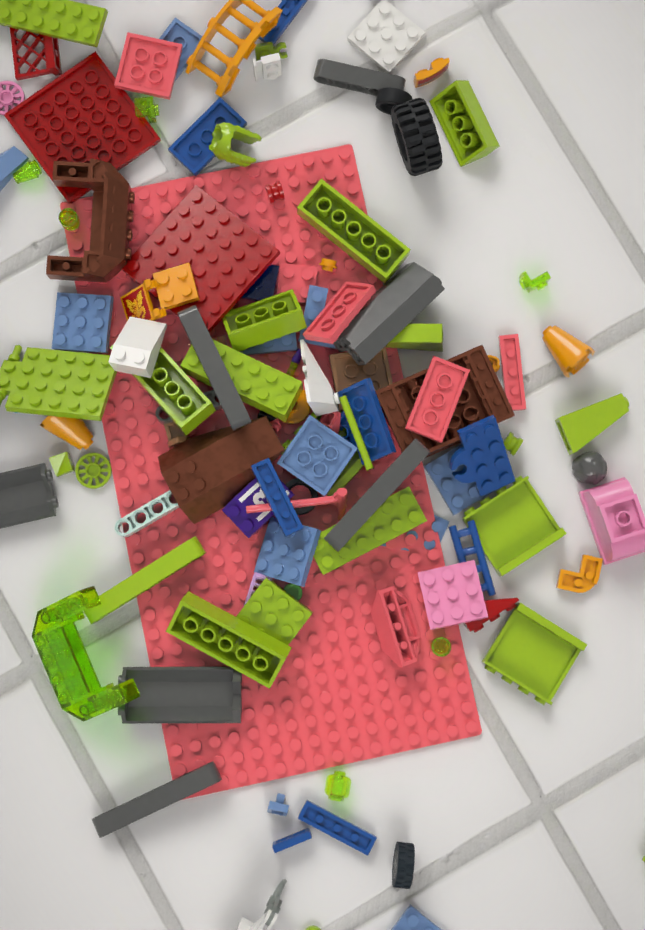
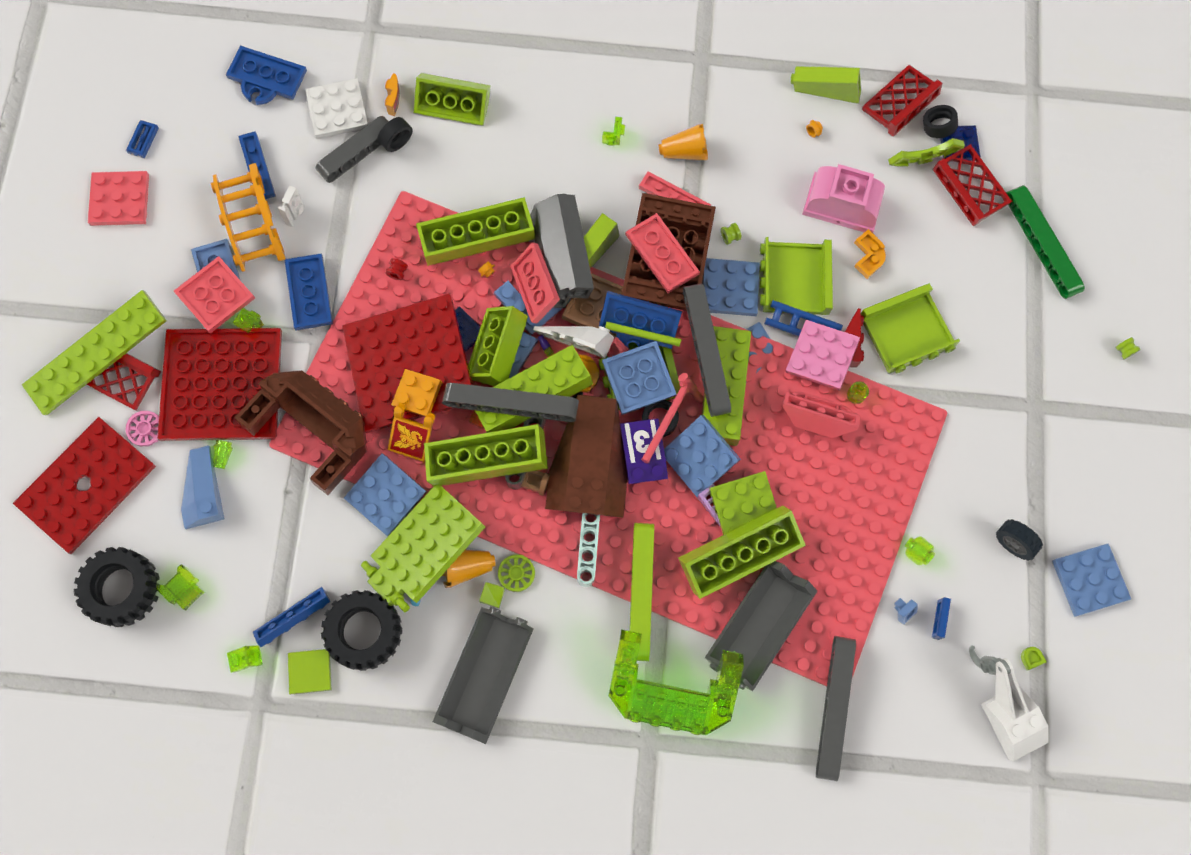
camera: 55 degrees left, 10 degrees down
(67, 215) = (287, 441): clear neon green wheel -> none
(137, 347) = (446, 454): white slope -> none
(222, 139) = (334, 280): lime piece -> none
(267, 48) = (275, 198): lime plate -> none
(277, 497) = (653, 428): blue plate -> none
(294, 590) = (734, 474): bright green tile -> none
(337, 827) = (953, 575): blue plate -> none
(416, 136) = (439, 132): black tyre -> none
(482, 457) = (730, 254): blue plate -> none
(587, 423) = (754, 169): lime slope -> none
(590, 468) = (790, 191): dark grey hair -> none

